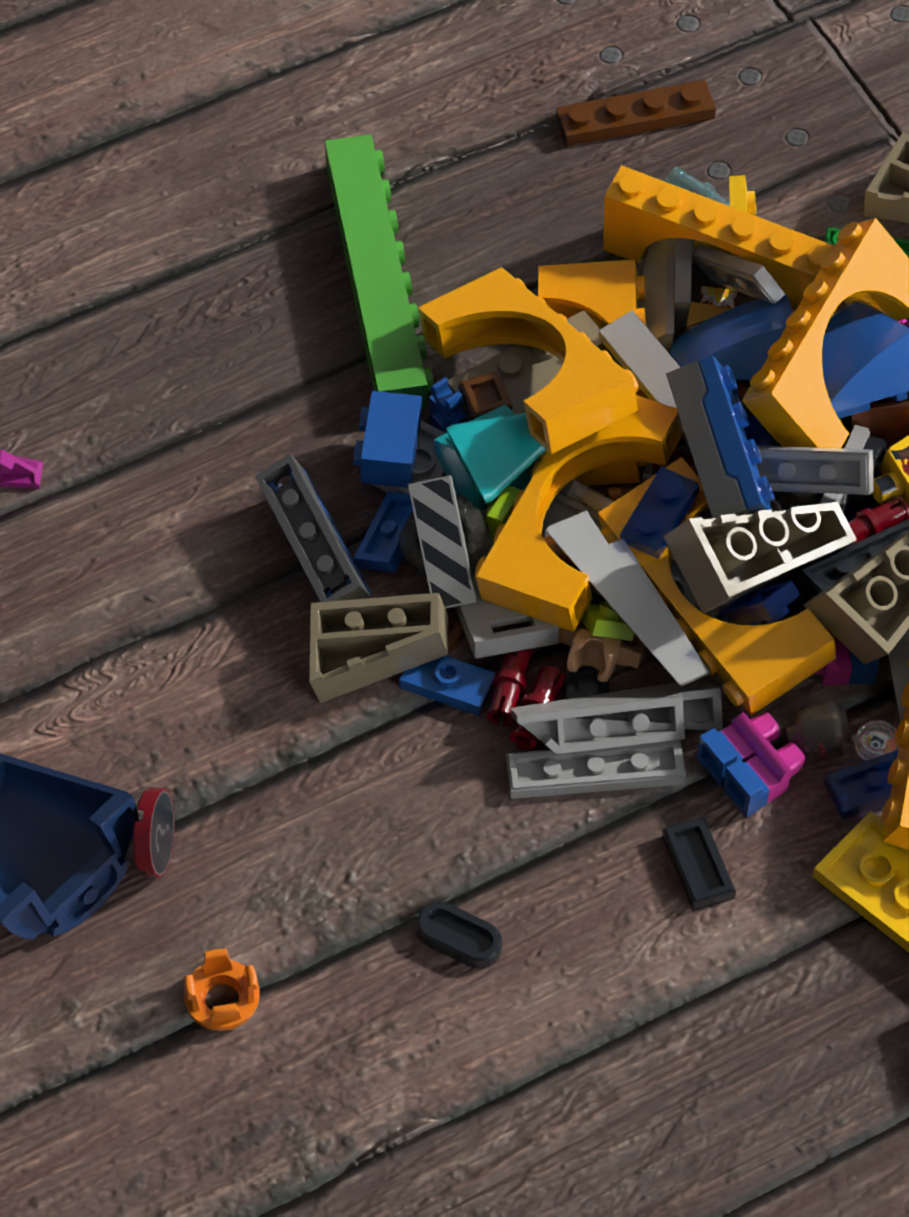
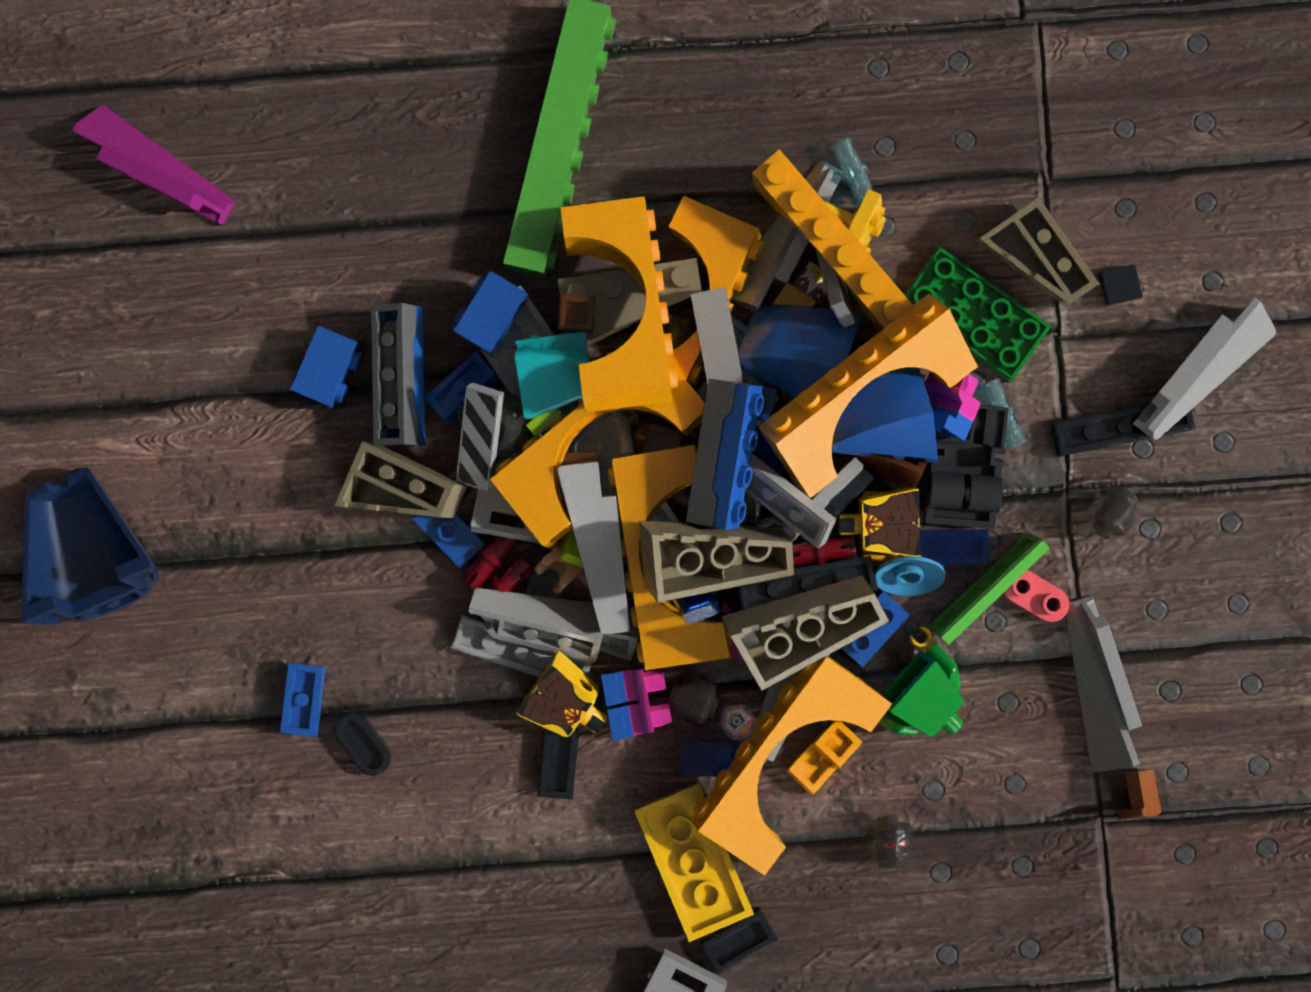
camera: 30 degrees right, 30 degrees up
(155, 833) = (173, 581): tile -> none
(216, 971) = (155, 718): orange piece -> none
(229, 568) = (328, 368): none -> blue brick
(365, 910) = (303, 699): none -> blue plate
(445, 406) = (549, 301): blue plate -> none
(635, 112) = (844, 62): reddish brown plate -> none
(659, 511) = (653, 487): clear blue plate -> none
(670, 781) = (563, 699): none -> torso

